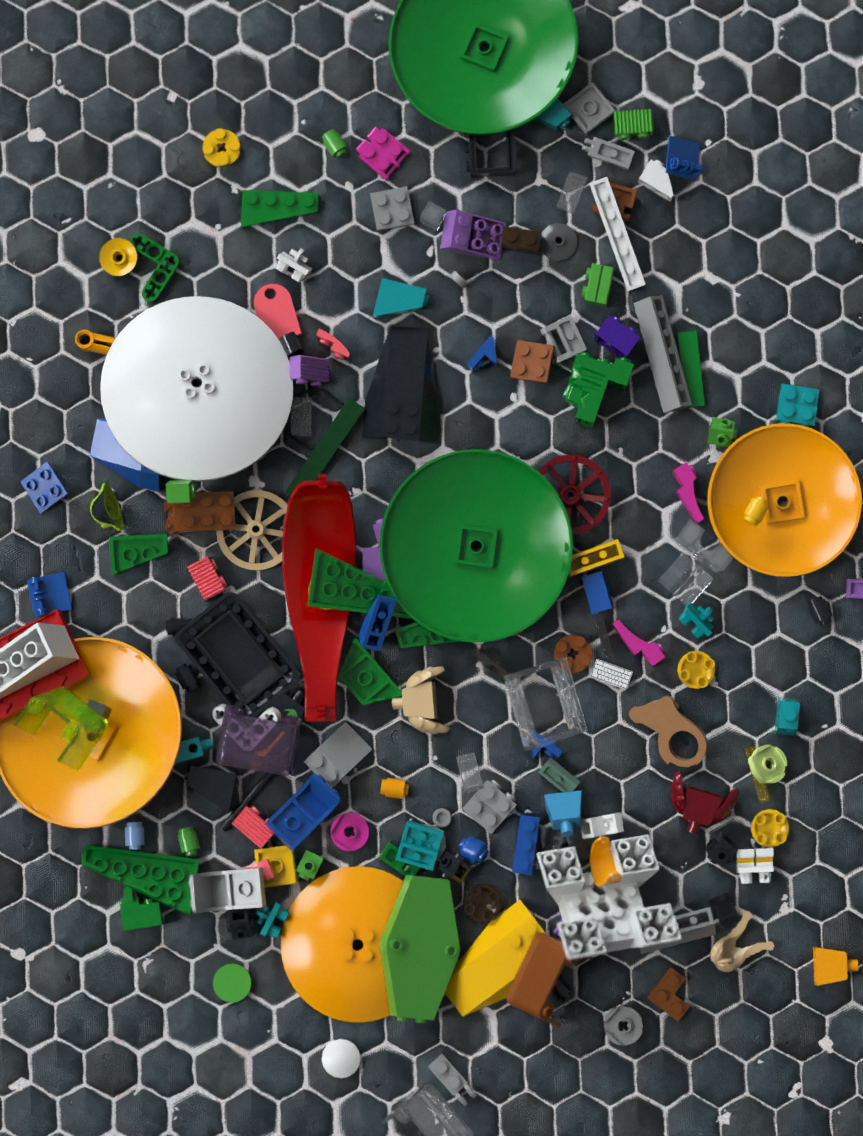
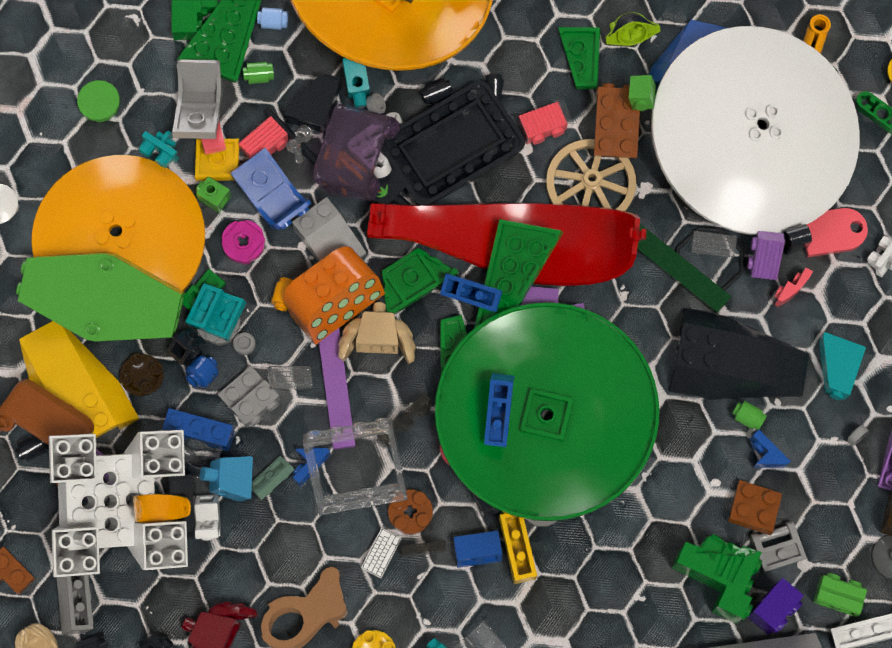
camera: 90 degrees right, 10 degrees down
(206, 730) = (376, 103): none -> light grey tile
(240, 923) = (159, 113): black brick -> none
(243, 792) = (303, 134): none -> clear piece
(392, 744) = (331, 293): none -> orange brick
(453, 373) = (749, 415): none -> bright green brick
(464, 734) = (336, 386): none -> medium lavender tile
(480, 586) = (499, 409): none -> blue slope
(575, 459) = (601, 527): dark red wheel -> none
(651, 652) = (400, 602): dark pink slope -> none

